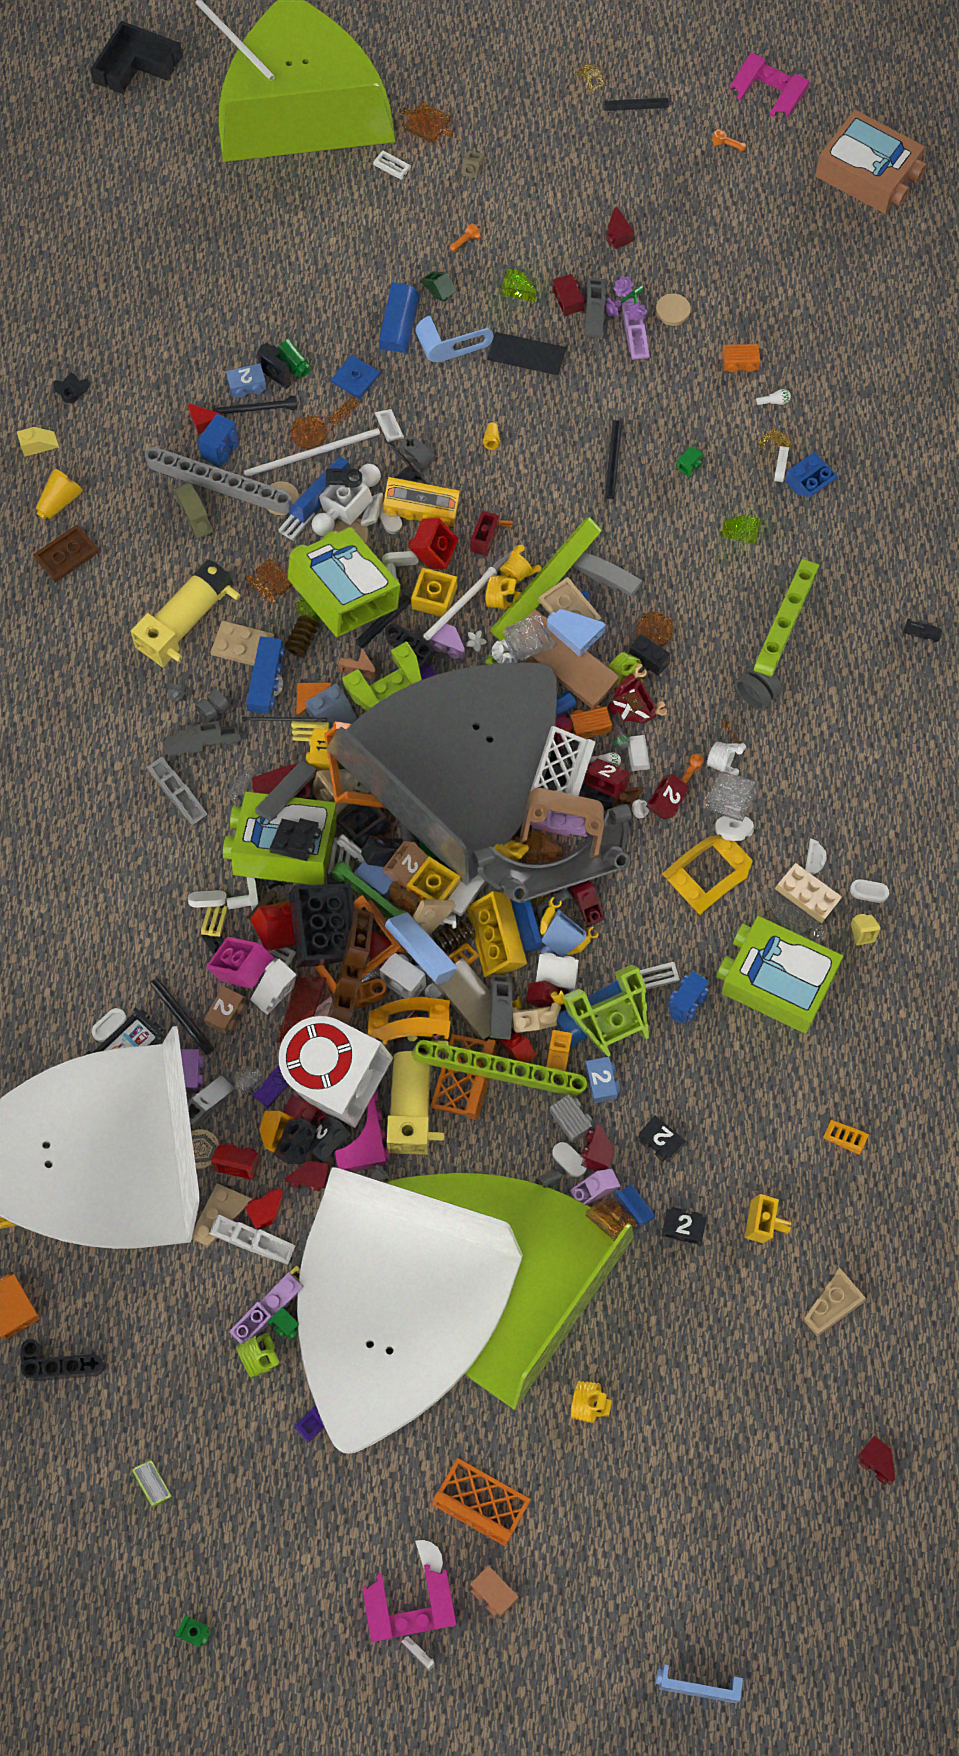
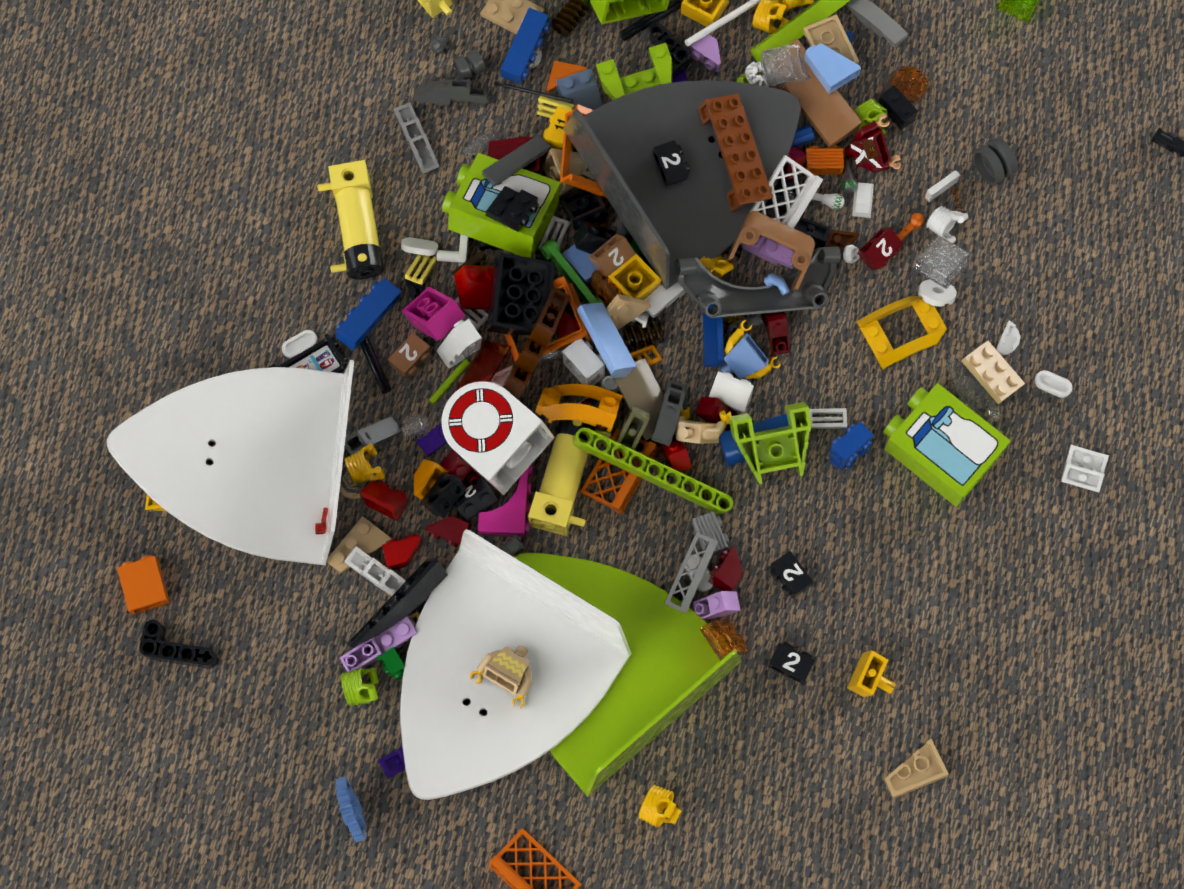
camera: 15 degrees right, 5 degrees up
(137, 886) = (356, 218): none -> light yellow piece
(151, 1483) = (233, 781): slope -> none
(172, 978) = (368, 313): none -> blue brick
(178, 1205) = (320, 528): none -> clear red hand
(191, 1063) = (362, 403): medium lavender brick -> none
(204, 1135) = (360, 468): none -> yellow piece
(270, 1028) = (449, 381): none -> lime bar
(280, 1259) = (403, 601): none -> black wedge
(280, 1480) = (350, 809): none -> medium blue gear
(350, 847) = (565, 228): white axle -> none
(364, 665) = (620, 58): nougat slope -> none
(367, 995) = (546, 371): orange piece -> none
(404, 1301) = (508, 670): none -> tan torso
(442, 759) = (670, 163): none -> black brick
(469, 1029) = (633, 428): none -> olive brick
(476, 640) = (734, 57): white plant -> none
(496, 934) = (683, 343): yellow slope -> none
(505, 731) = (737, 150): none -> dark orange bracket
(541, 847) = (746, 269): clear orange slope -> none
(559, 1050) = (714, 467): light orange slope -> none
(570, 1156) = (697, 576): none -> light grey fence
(576, 852) = (778, 281): none -> light blue arm
(601, 1079) = (748, 505): medium blue brick -> none
(607, 778) = (826, 217): dark red brick -> none
(635, 1205) = (749, 632): blue panel -> none
(712, 722) = (942, 186): none -> white tile
(786, 618) = (1039, 101): lime beam -> none
(848, 1130) = (965, 620): light orange slope -> none
(864, 929) = (1039, 419): light yellow slope -> none
(920, 966) = (1084, 468): none -> white slope

